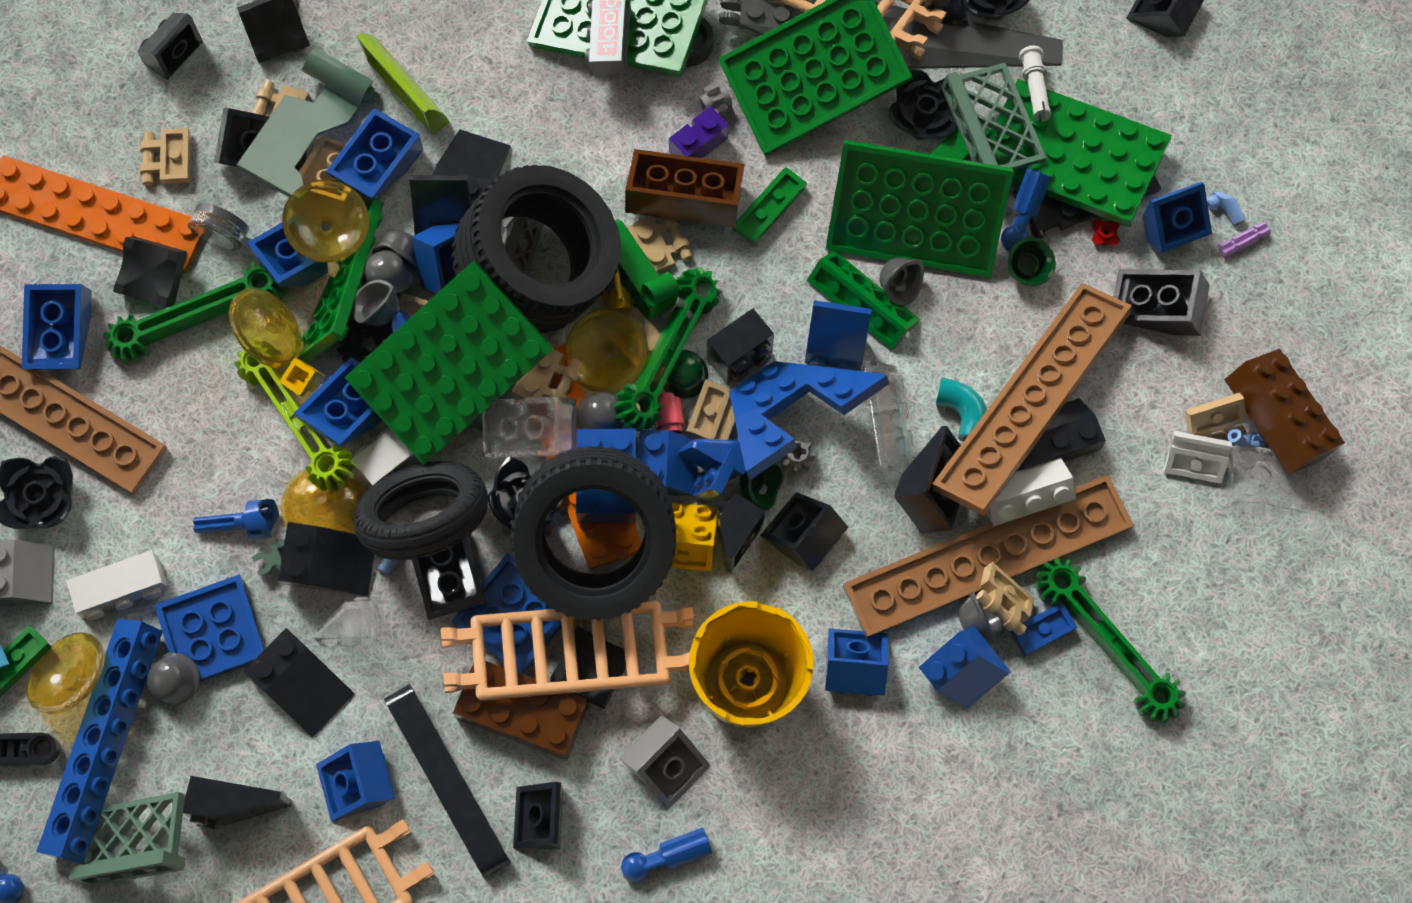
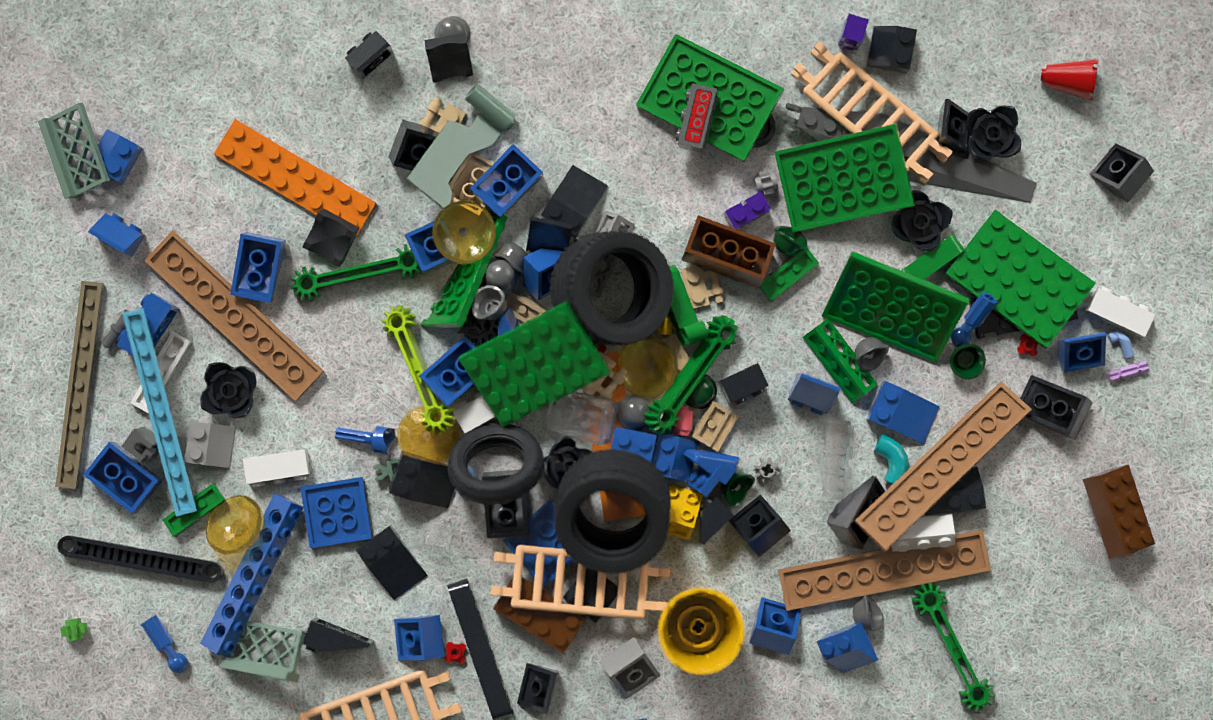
camera: 10 degrees right, 15 degrees up
(173, 679) = (306, 542): dark grey helmet -> none
(174, 156) = (360, 144): tan plate -> none
(218, 226) = (385, 213): clear piece -> none
(265, 327) = (408, 302): clear yellow dish -> none
(303, 378) = (428, 344): yellow leg -> none
(402, 83) = (538, 122): lime slope -> none
(417, 798) = (459, 657): none -> red plate
(759, 165) = (785, 244): none -> dark green helmet
(780, 386) = (760, 422): blue wing -> none
(962, 346) = (902, 412): none -> blue slope
(970, 122) = (948, 247): sand green fence -> none
(1005, 599) = (891, 603): tan plate -> none
(1035, 73) = (1007, 212): white pin -> none
(1045, 629) = (909, 629): blue plate -> none
(1197, 457) = (1048, 530): white plate -> none
(1214, 167) = (1120, 312): none -> white brick
(1217, 416) = (1068, 508): tan plate -> none
(1249, 439) = (1086, 525): light blue arm -> none

